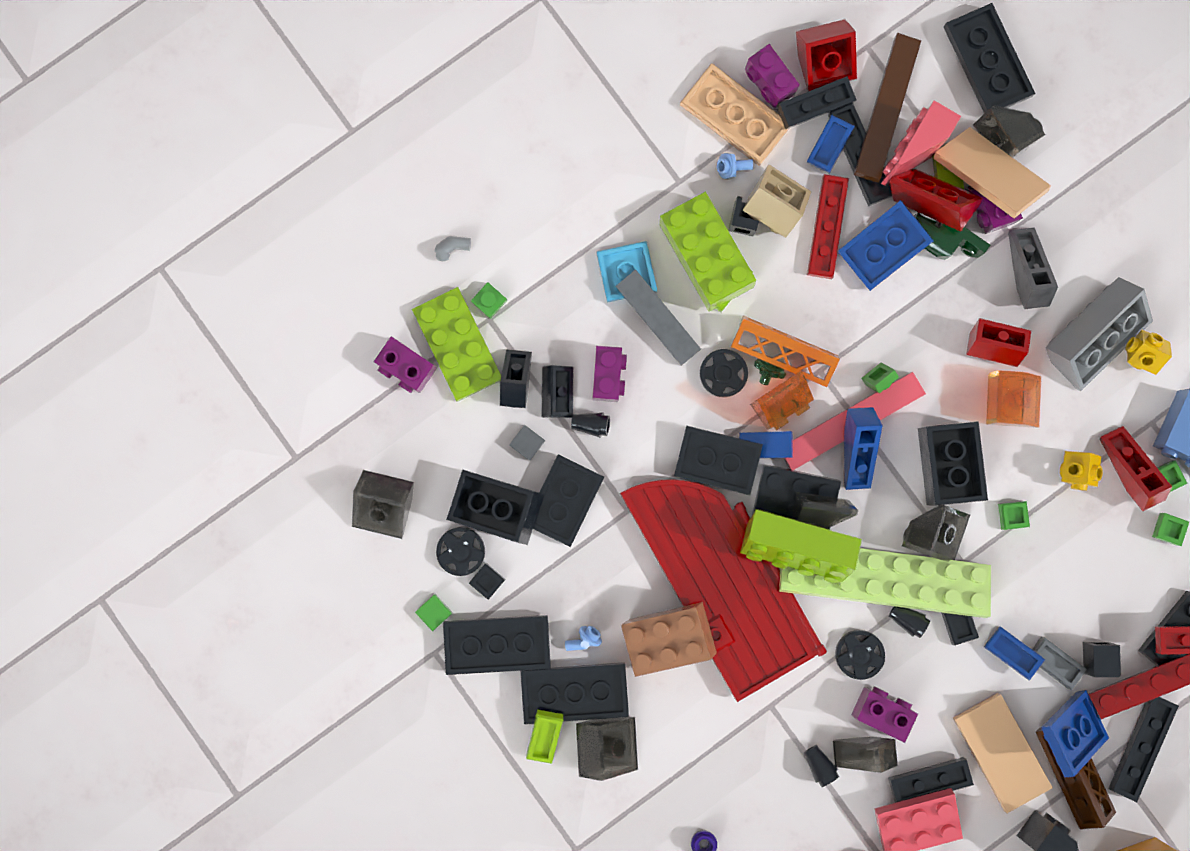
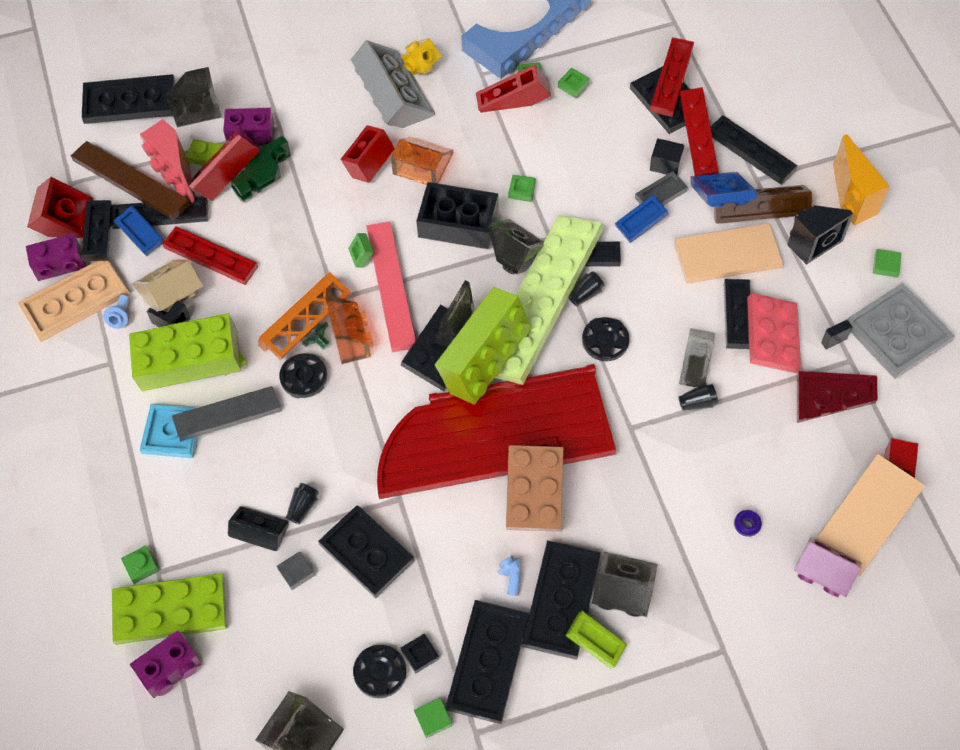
camera: 70 degrees left, 25 degrees down
(449, 244) = (66, 583): light grey arm -> none
(495, 507) = (345, 612): black brick -> none
(515, 379) = (228, 558): black slope -> none
(607, 372) = (259, 471): magenta brick -> none
(718, 460) = (381, 399): black plate -> none
(774, 443) = (383, 357): blue tile -> none
(861, 447) = (415, 279): blue slope -> none
(885, 245) = (246, 211): blue plate -> none
(885, 714) = (664, 331): magenta brick -> none
(992, 172) = (221, 116): light nougat tile -> none
(1031, 269) = (319, 116): flat silver slope -> none
(1081, 470) = (499, 126): yellow brick -> none

